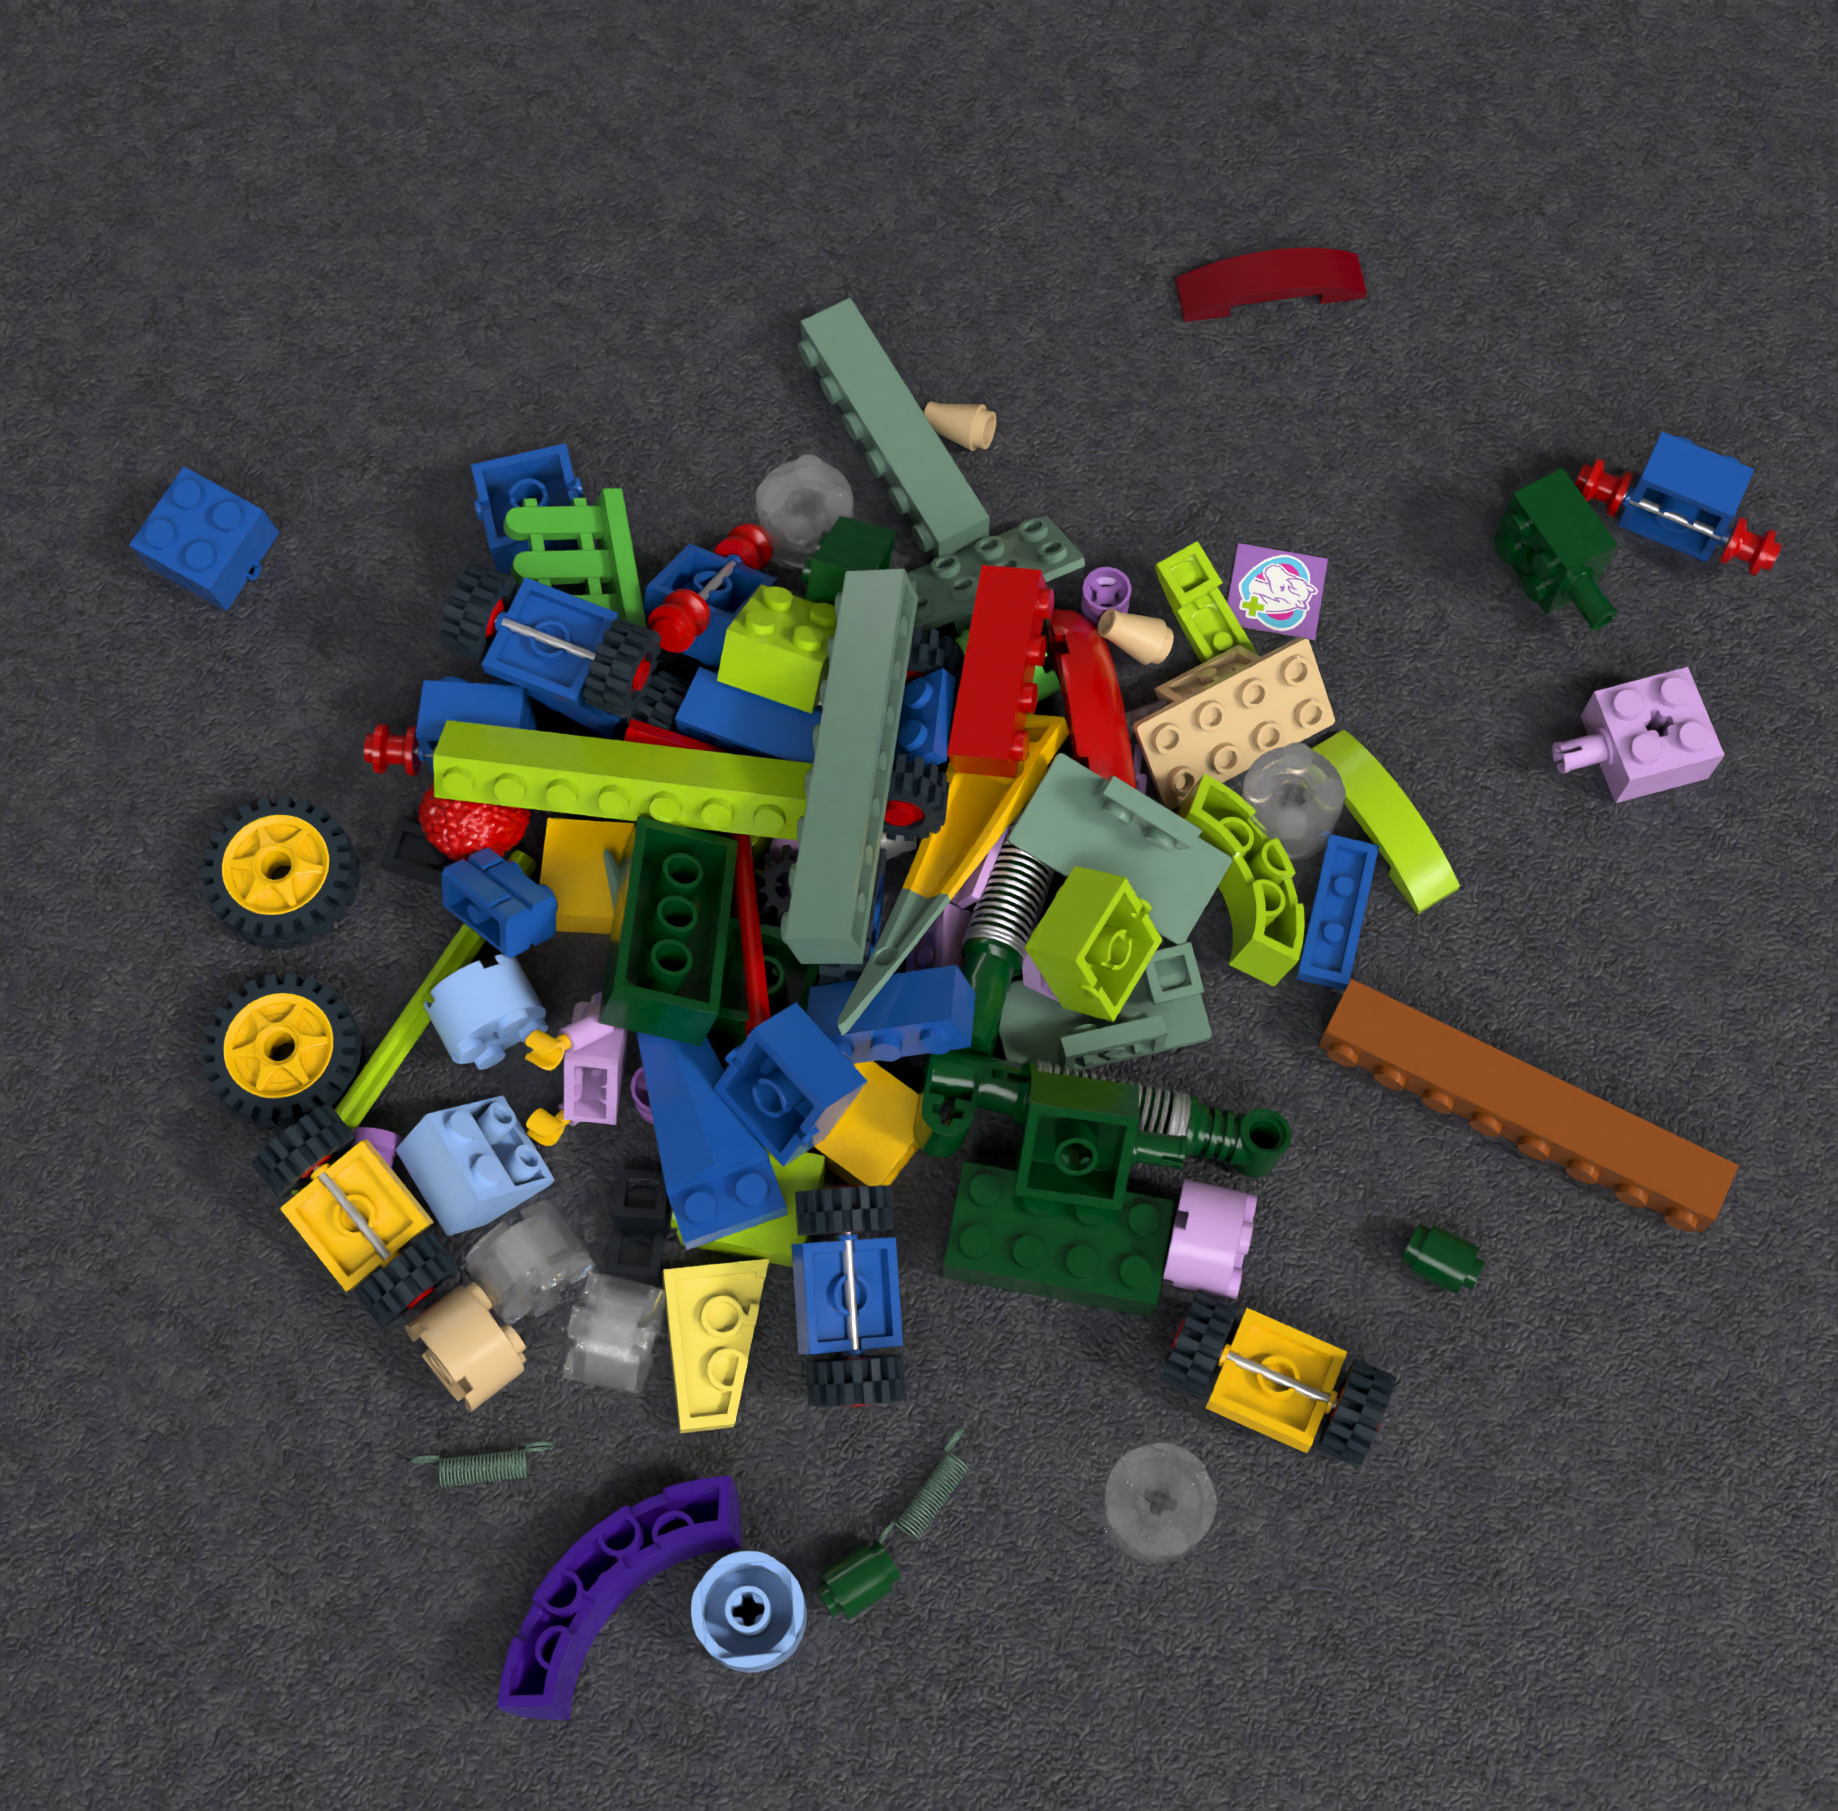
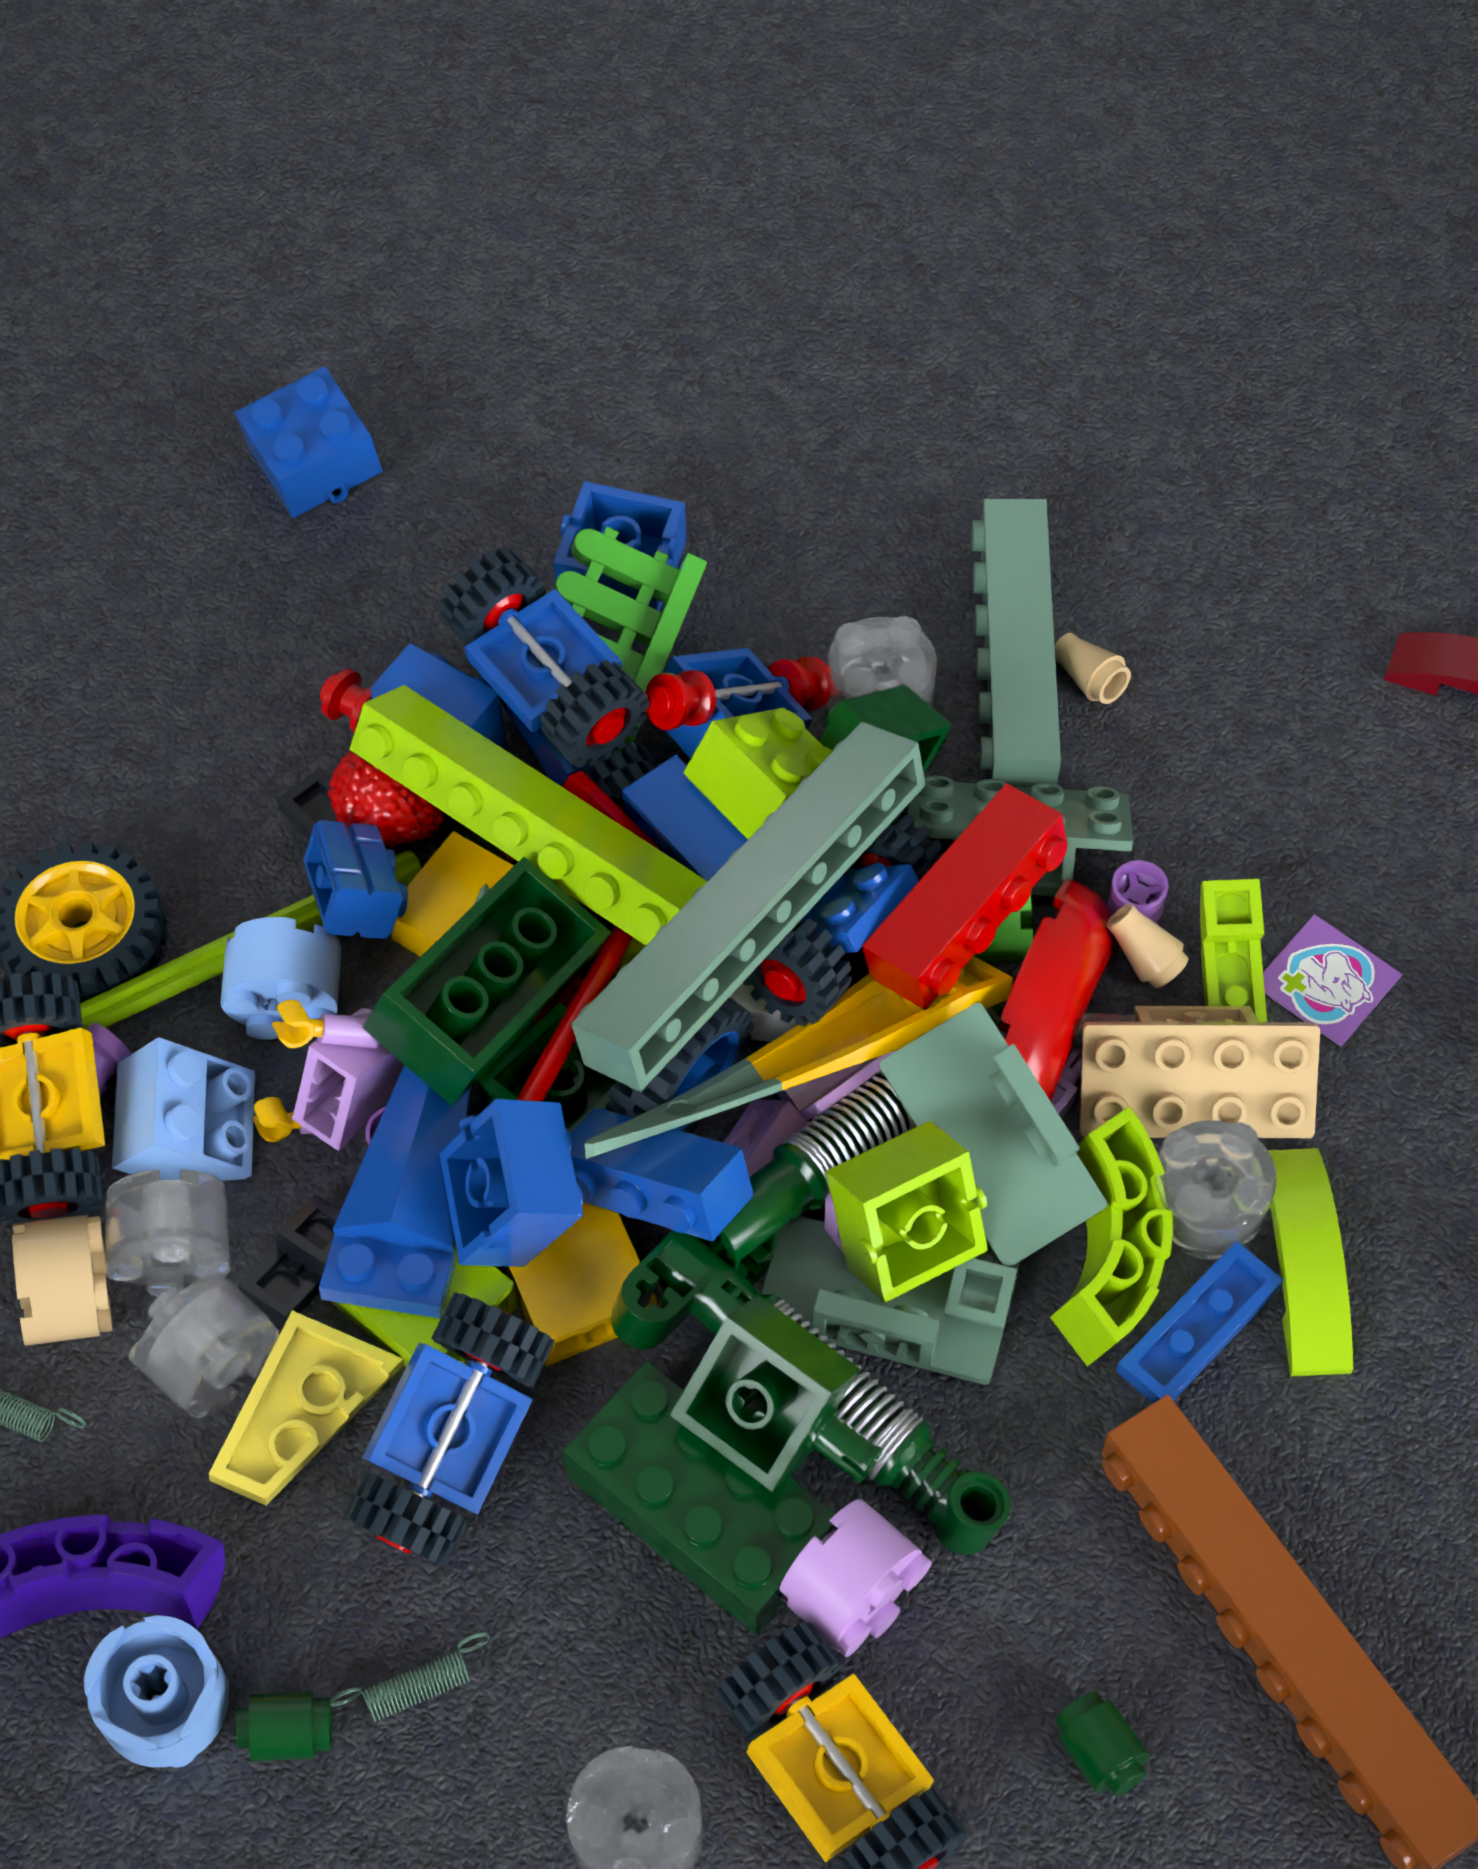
camera: 30 degrees right, 10 degrees down
(257, 845) = (170, 799): wheel -> none

